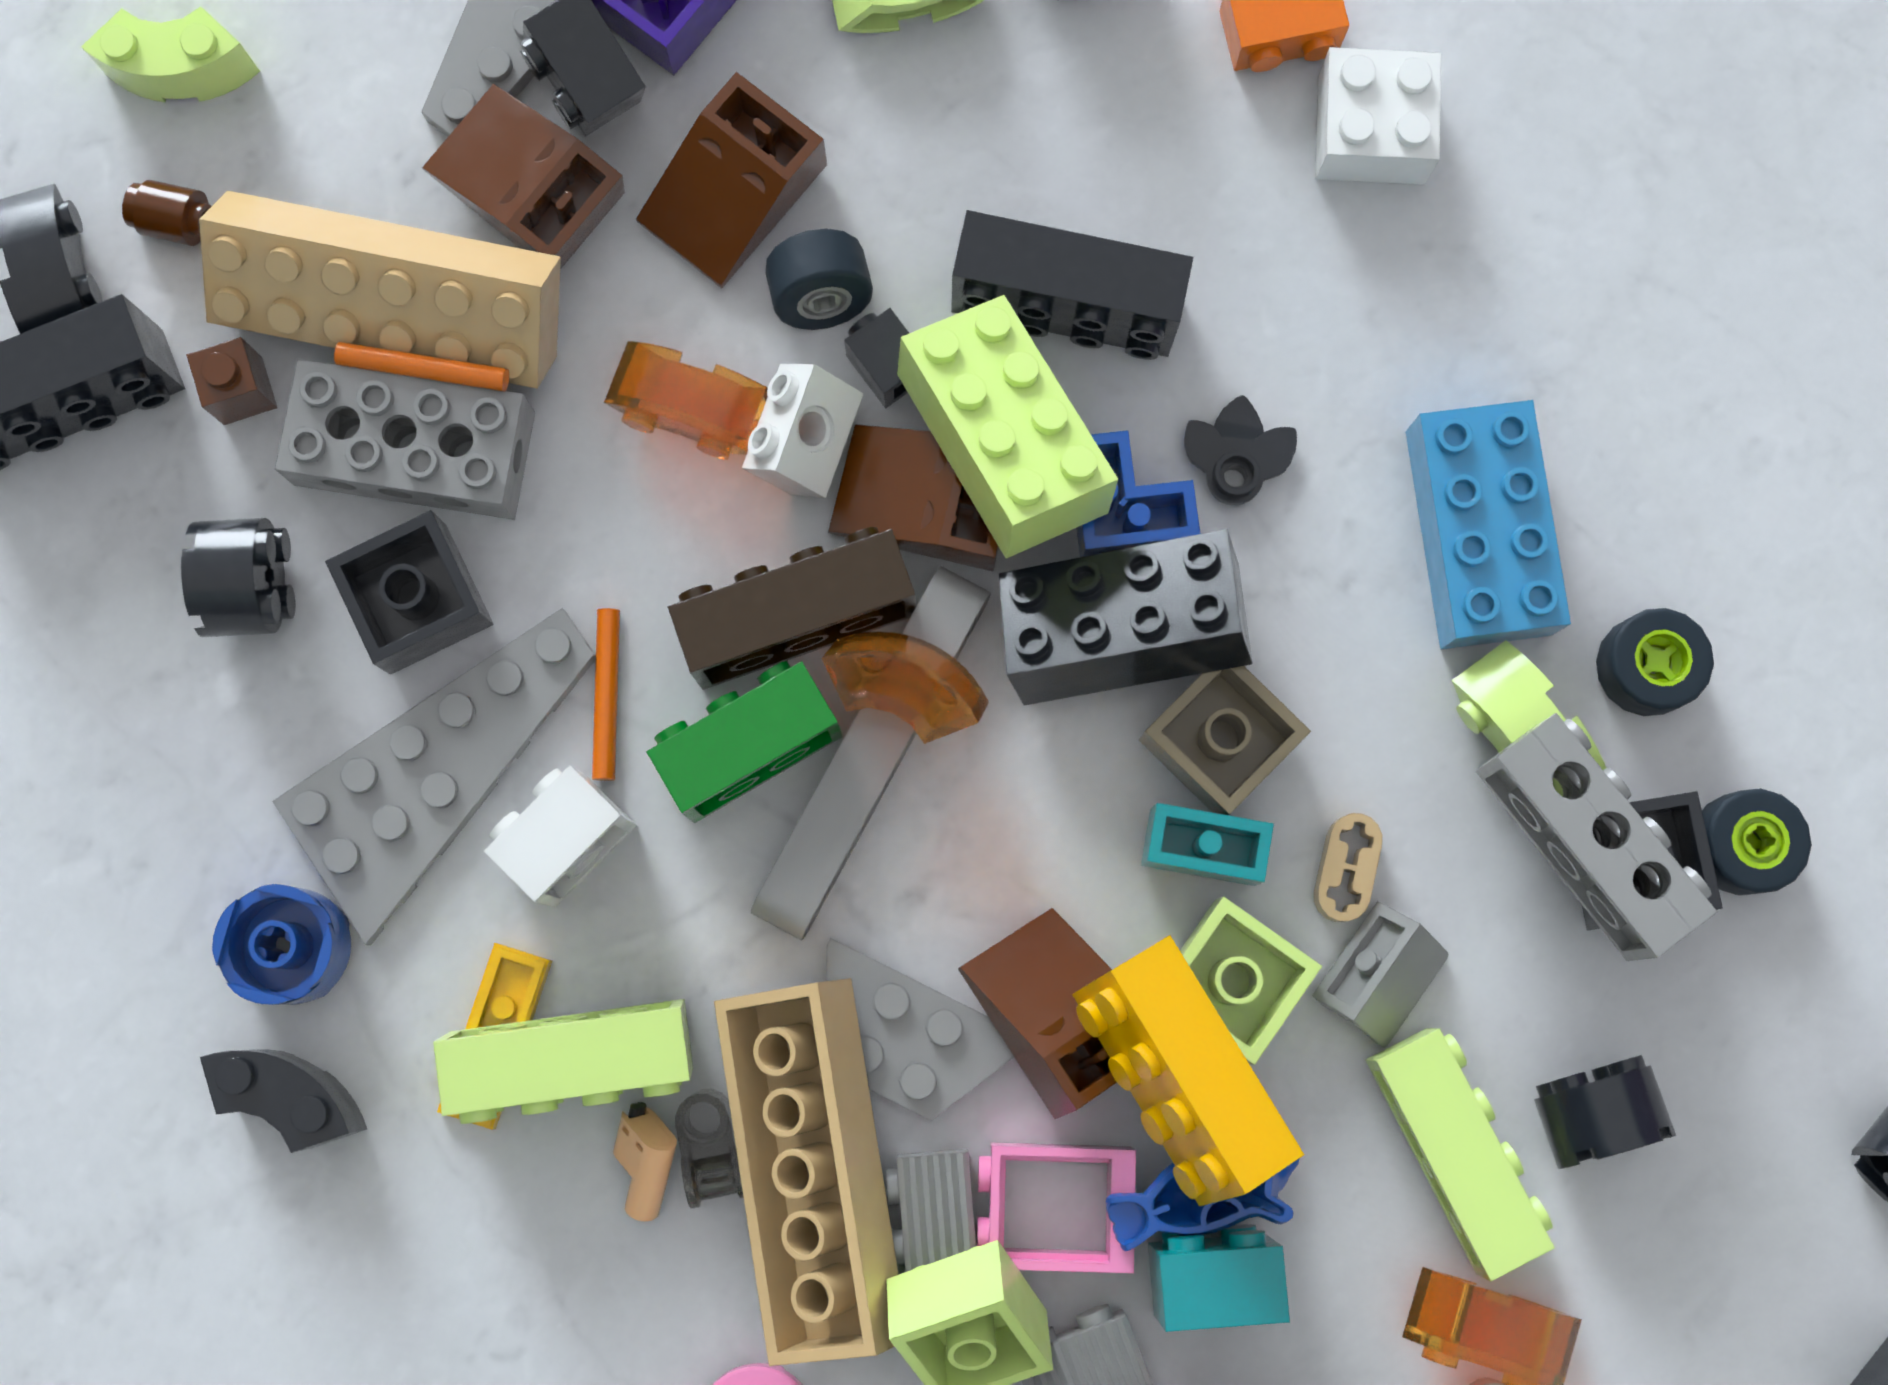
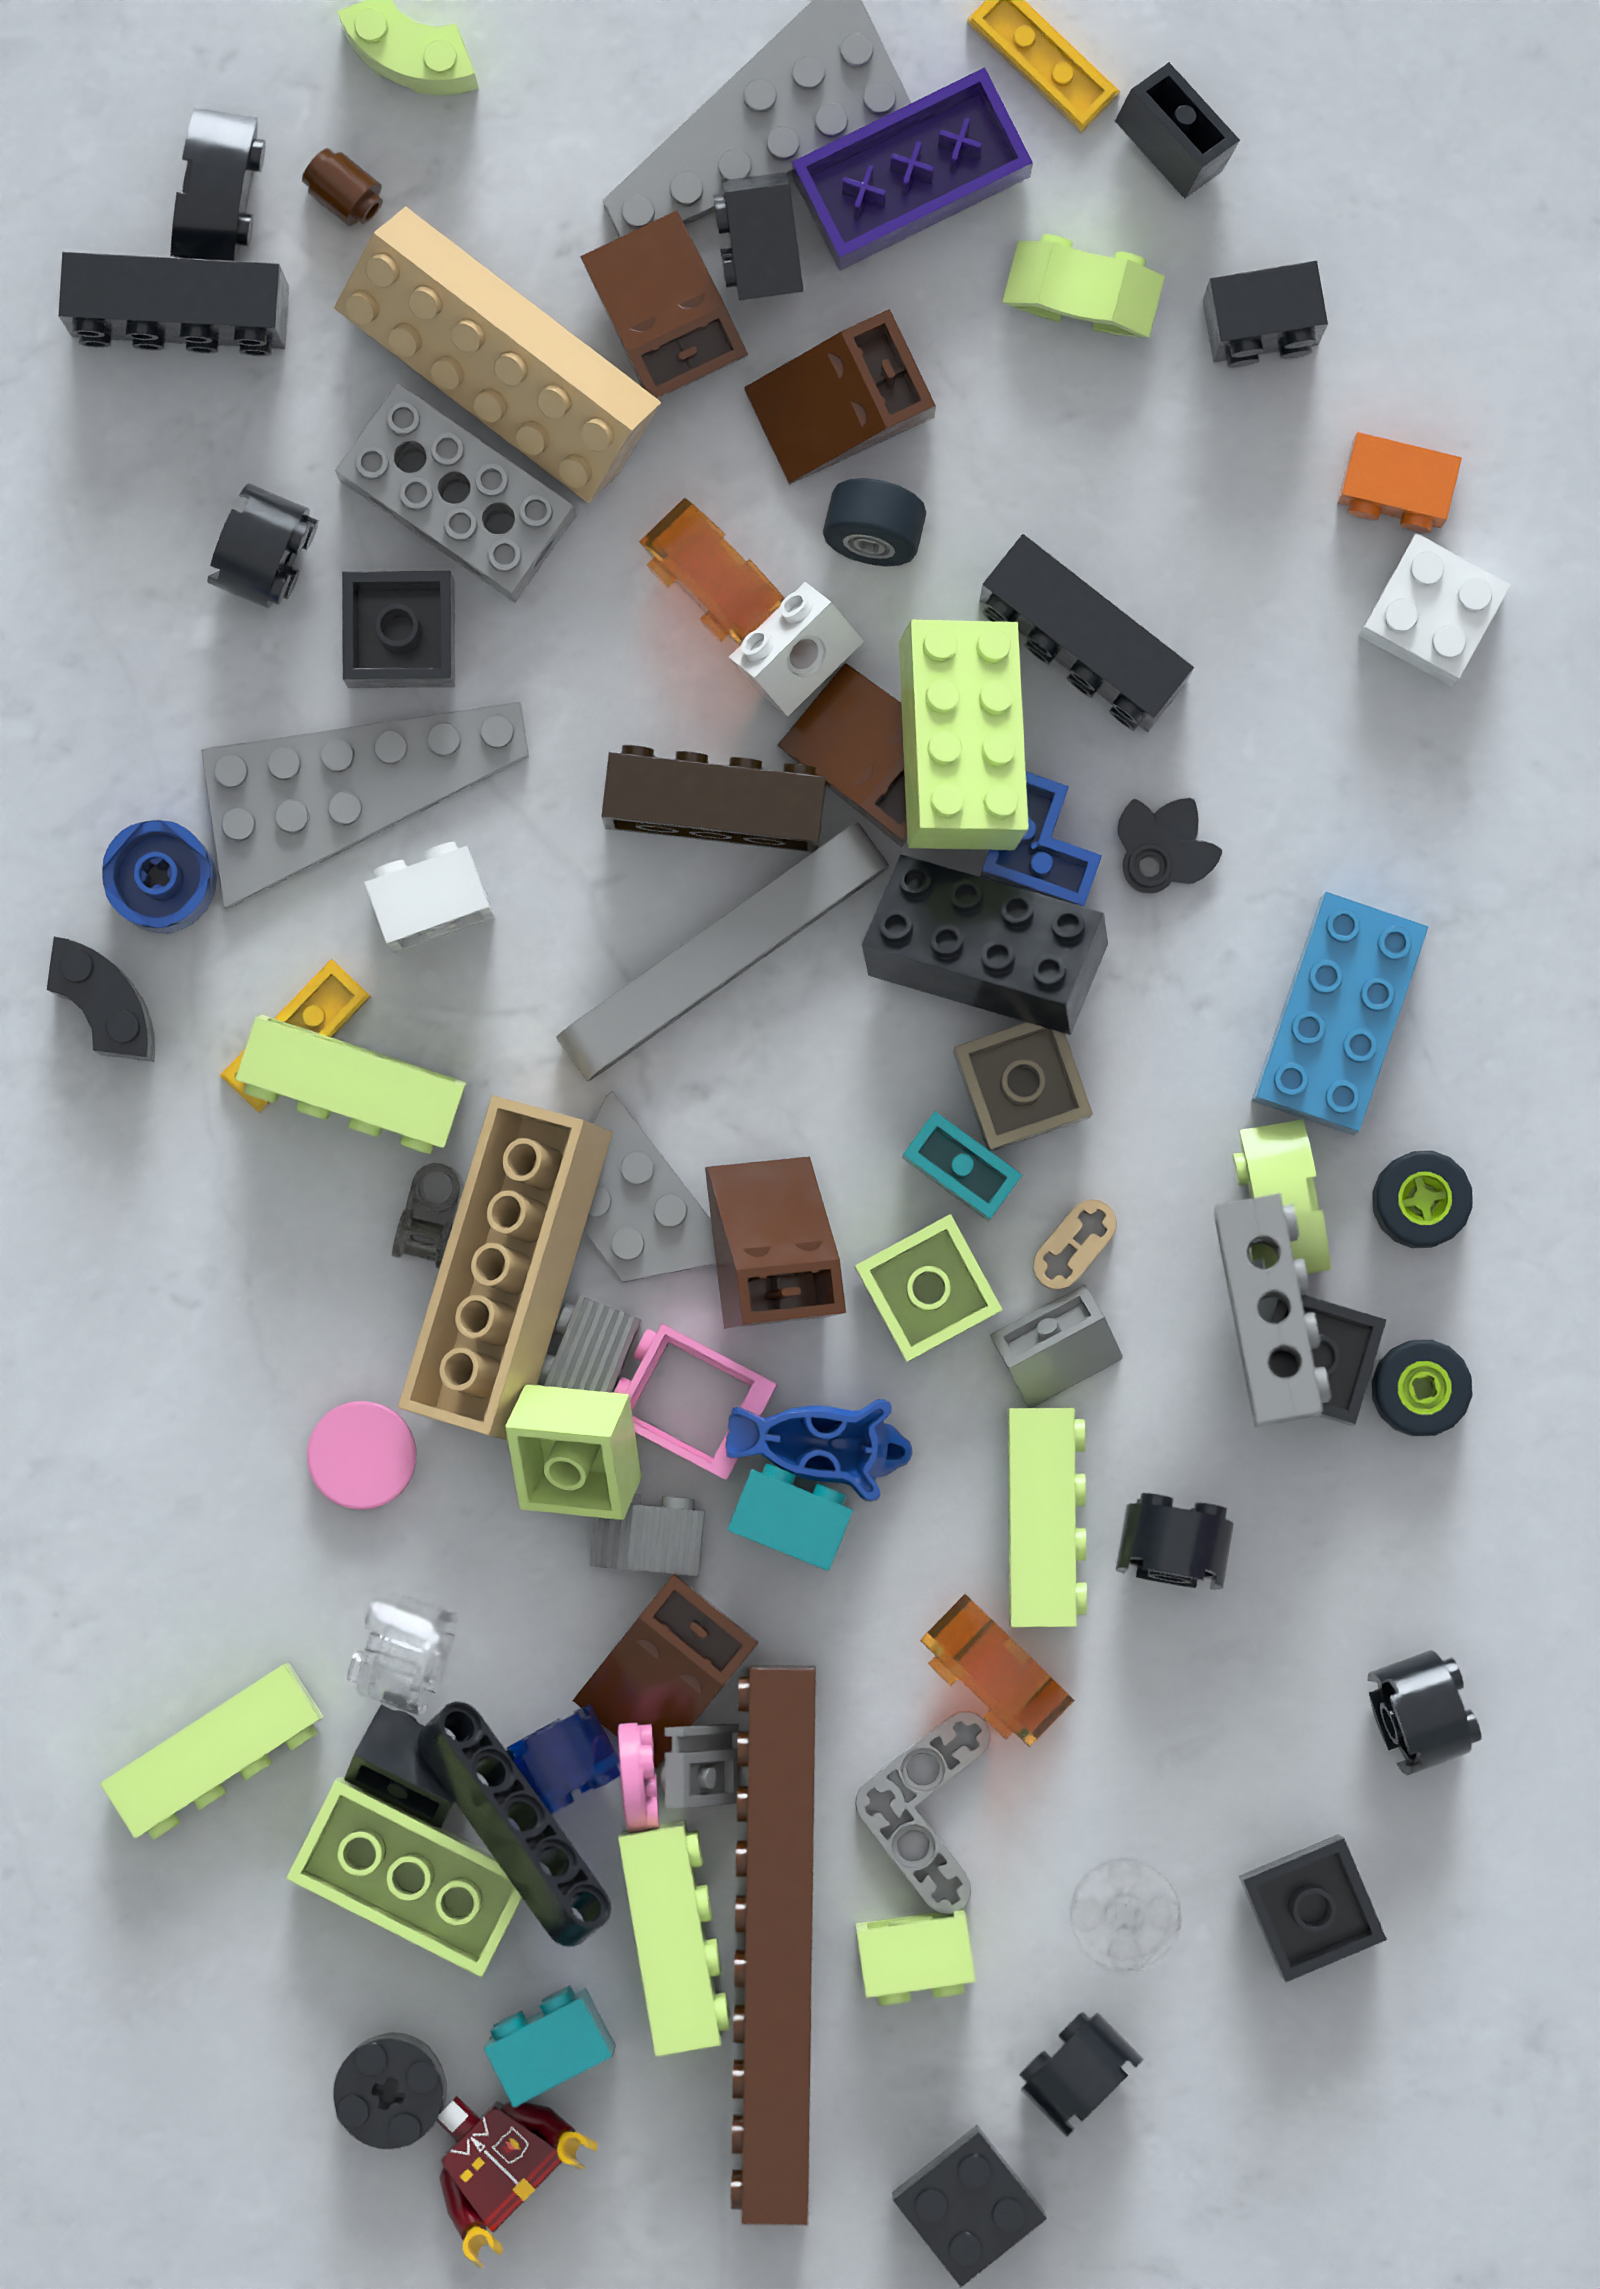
camera: 30 degrees right, 5 degrees up
(231, 381) = (330, 368): reddish brown brick -> none
(421, 366) = (499, 440): orange bar -> none
(606, 694) = (521, 793): orange bar -> none
(646, 1152) = (377, 1191): light nougat piece -> none
(744, 740) = (619, 892): green brick -> none
(874, 353) = (892, 609): black brick -> none
(907, 679) = (777, 909): clear orange brick -> none
(1186, 1075) = (841, 1333): yellow brick -> none

